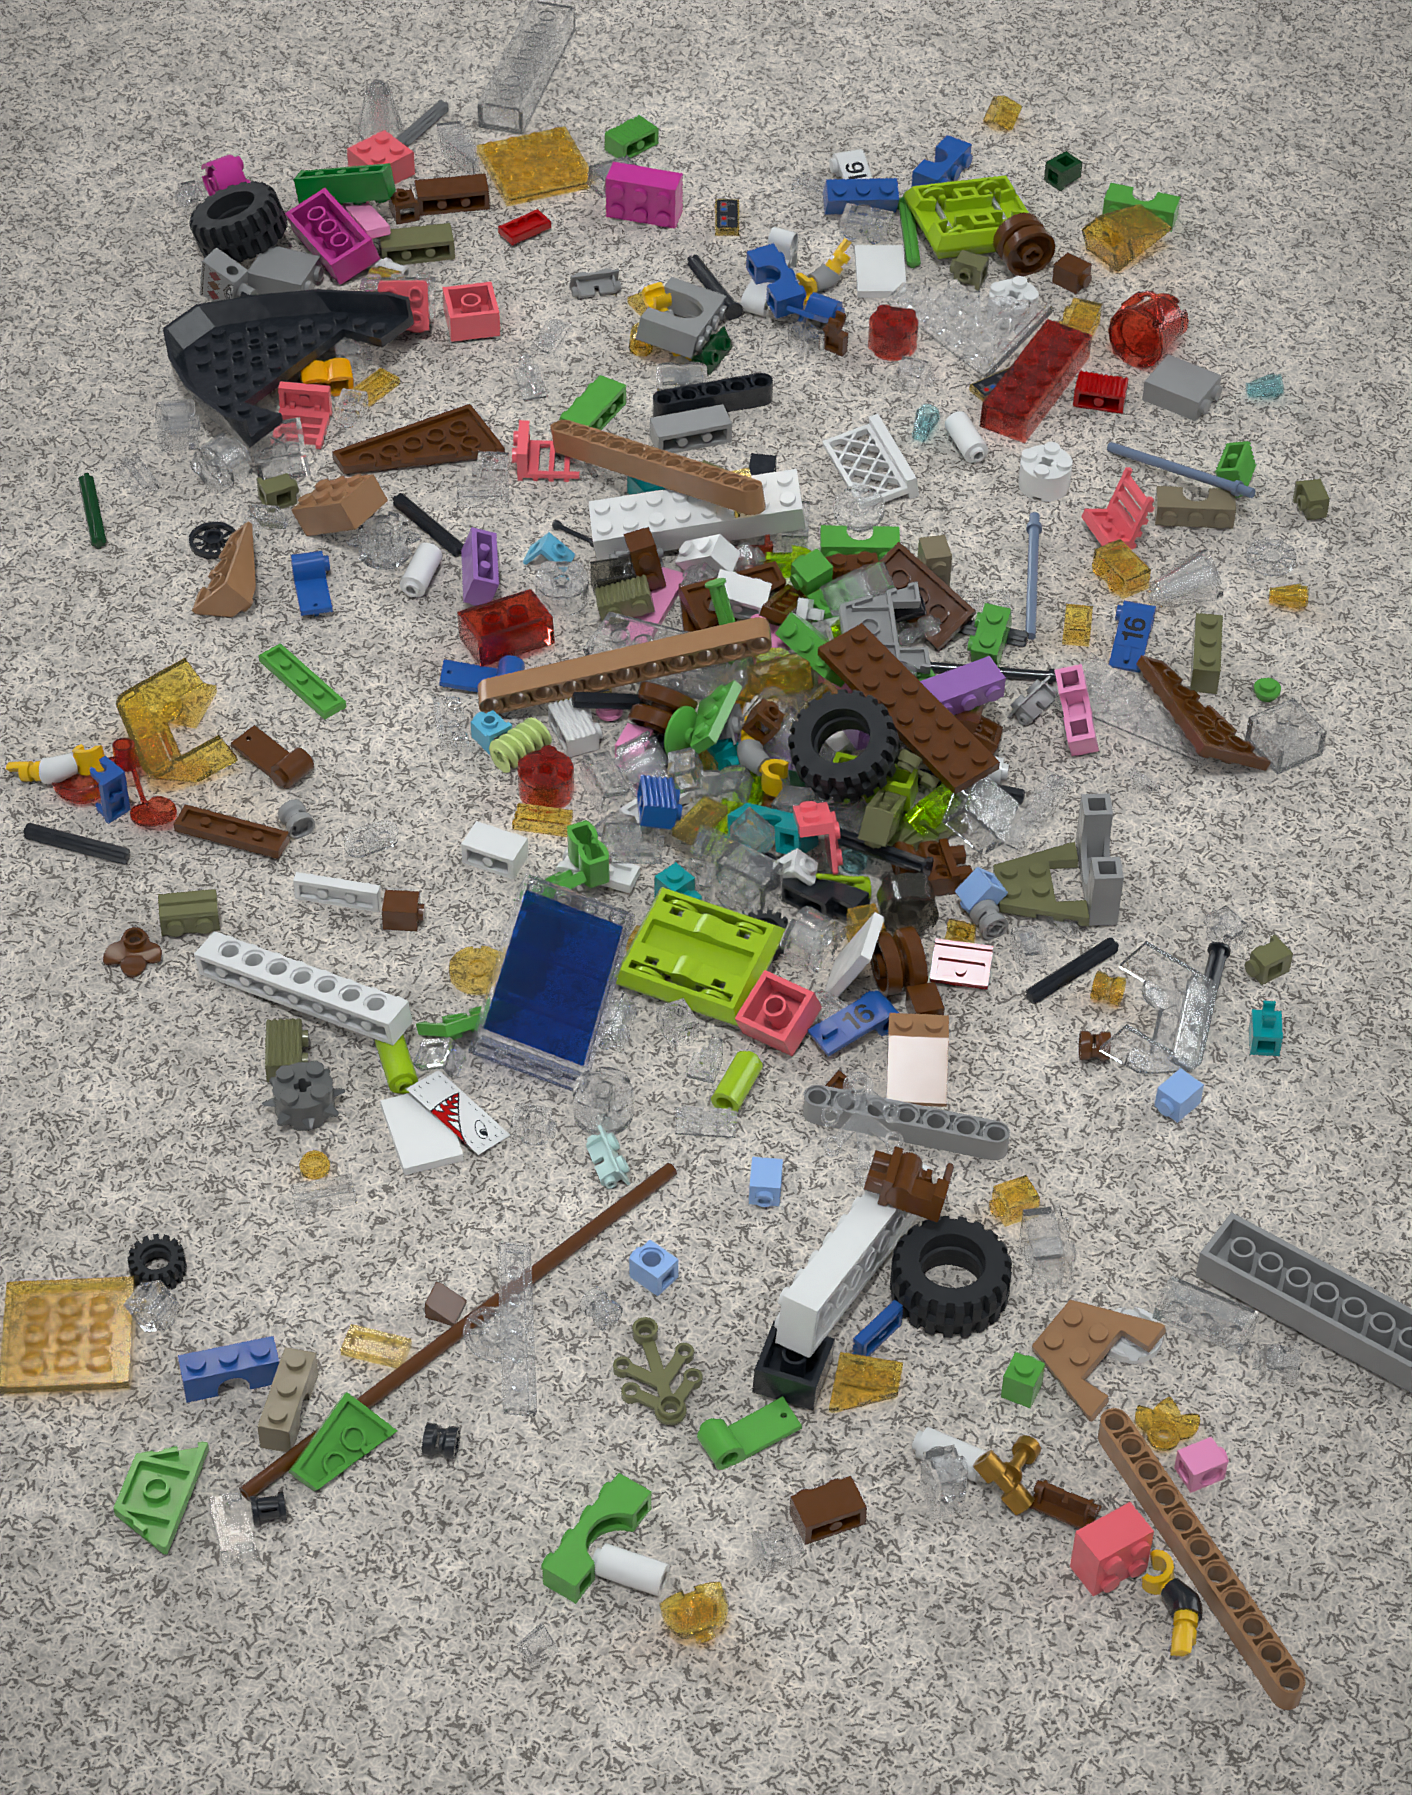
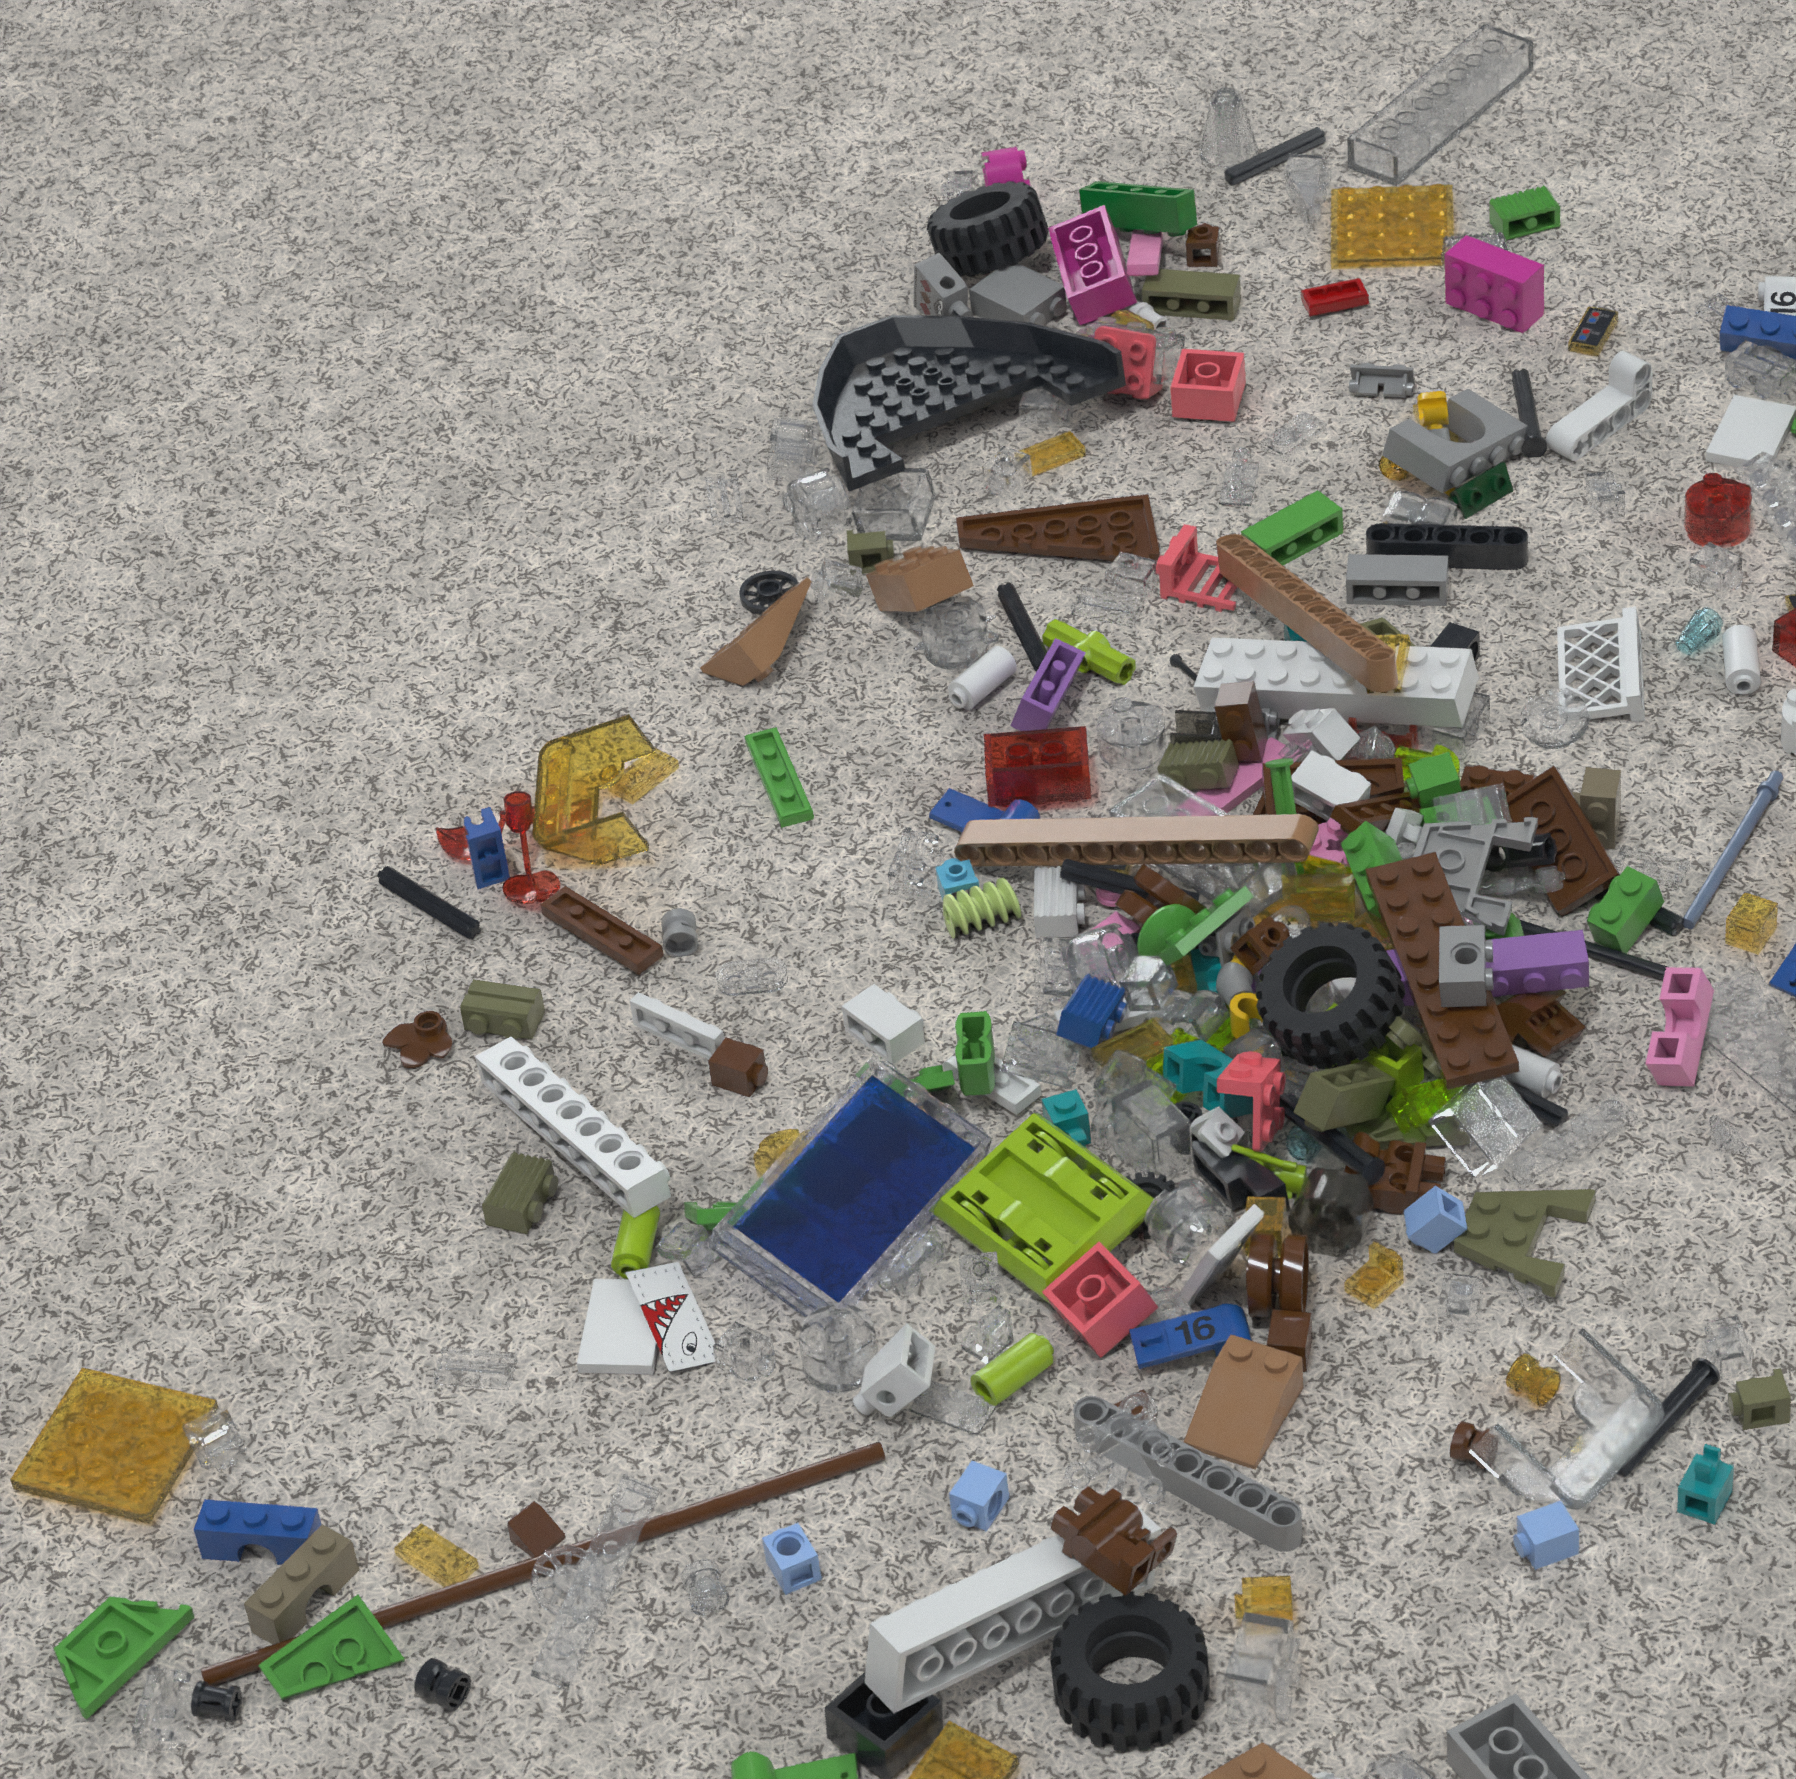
camera: 30 degrees right, 5 degrees down
(59, 767) = (450, 811): piece -> none
(92, 511) = (652, 530): dark green axle -> none
(156, 1249) = (248, 1378): black tyre -> none
(272, 759) = (694, 857): reddish brown door -> none
(303, 1095) = (509, 1249): dark grey brick -> none
(309, 403) = (956, 458): coral plate -> none
(311, 582) = (852, 662): blue door -> none
(314, 1165) = (482, 1332): clear yellow plate -> none
(332, 373) = (992, 429): light orange brick -> none
(383, 149) = (1214, 184): coral brick -> none
(452, 194) = (1267, 242): reddish brown brick -> none
(507, 536) = (1099, 654): none -> lime piece
(542, 816) = (963, 996): clear yellow tile -> none
(546, 778) = (986, 955): clear red brick -> none
(550, 548) = (1149, 688): medium azure bracket -> none
(605, 1148) = (814, 1417): light aqua hinge -> none
(658, 1377) = (733, 1686): olive plant -> none
(661, 1109) = (896, 1373): none -> white torso
(753, 831) = (1178, 1075): clear brick -> none
(769, 265) = (1593, 399): blue arch -> none
(818, 308) = (1639, 465): blue door -> none
(826, 274) = (1667, 427): yellow piece -> none
(835, 339) = (1638, 502): reddish brown plate -> none
(836, 540) = (1501, 752): bright green arch -> none
(878, 1330) = (1011, 1710): blue tile -> none
(933, 701) = (1463, 965): none -> light grey brick
(961, 963) = (1363, 1301): plate -> none
(990, 921) = (1430, 1256): light grey wheel -> none
(1026, 708) = (1628, 1008): light grey hinge -> none
(1072, 970) = (1502, 1346): black axle -> none
(1099, 872) = (1592, 1236): light grey arch -> none

